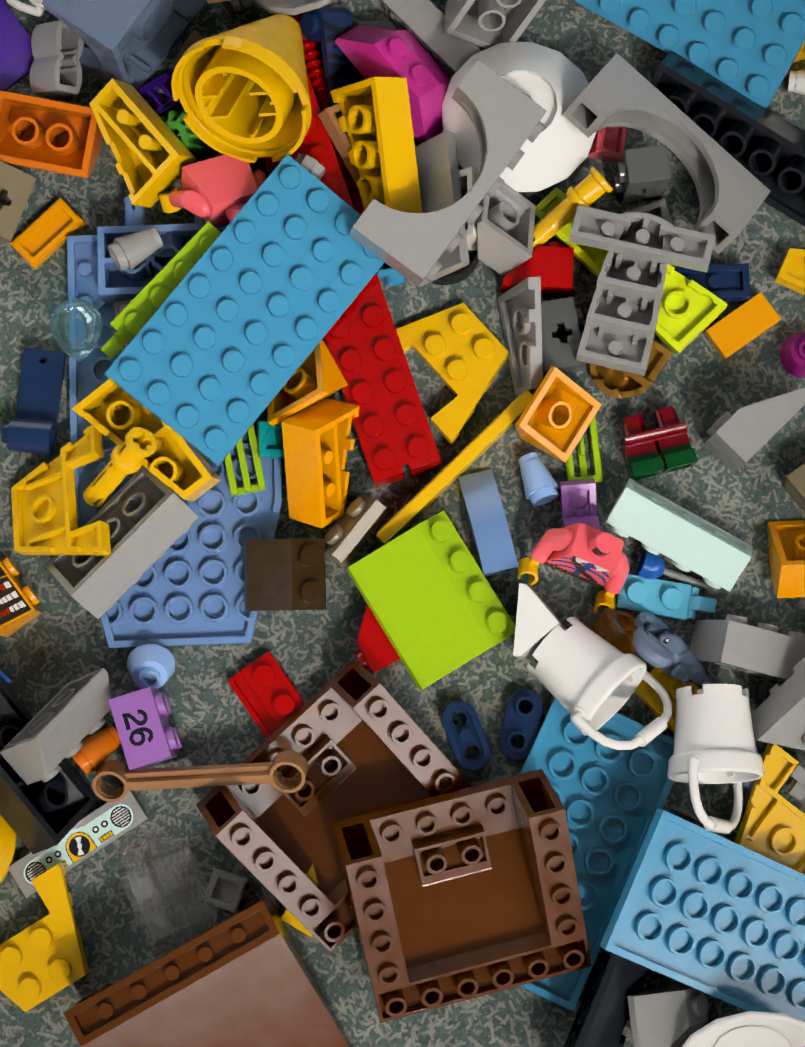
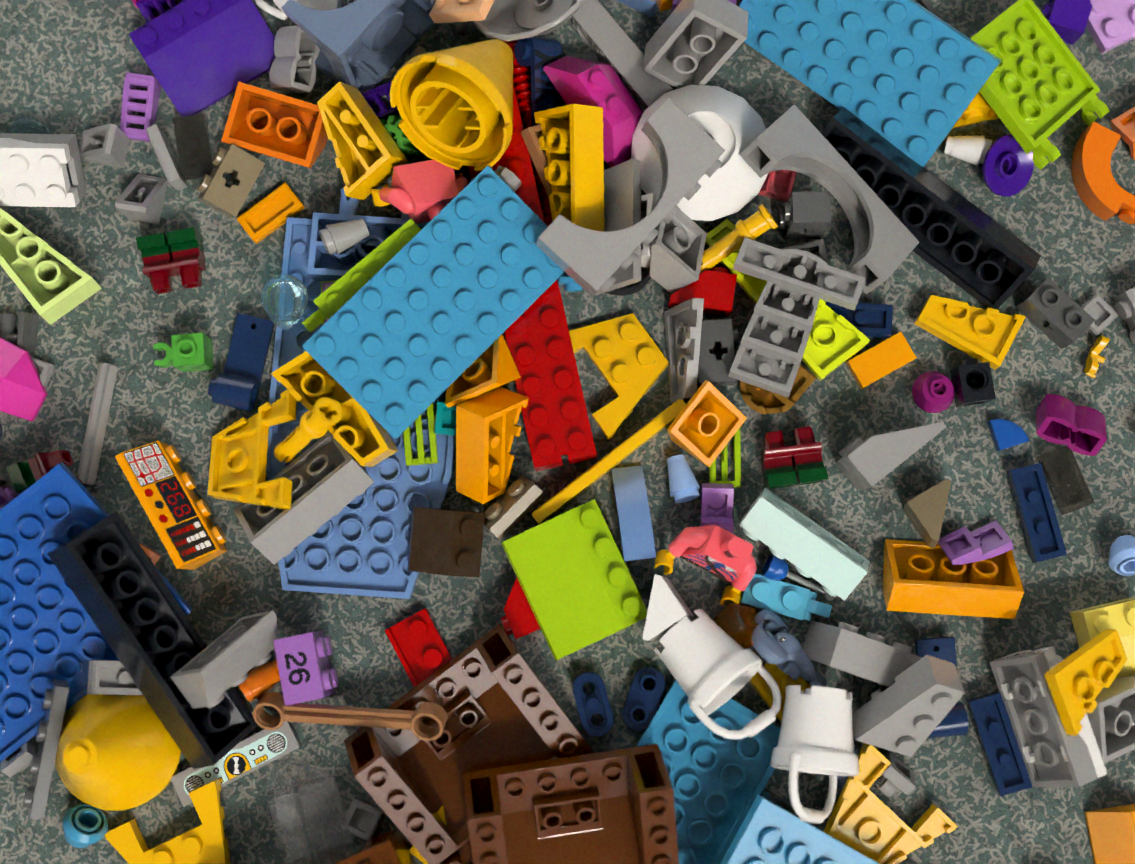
camera: 10 degrees right, 0 degrees up
(150, 665) = (317, 610): light blue cone -> none

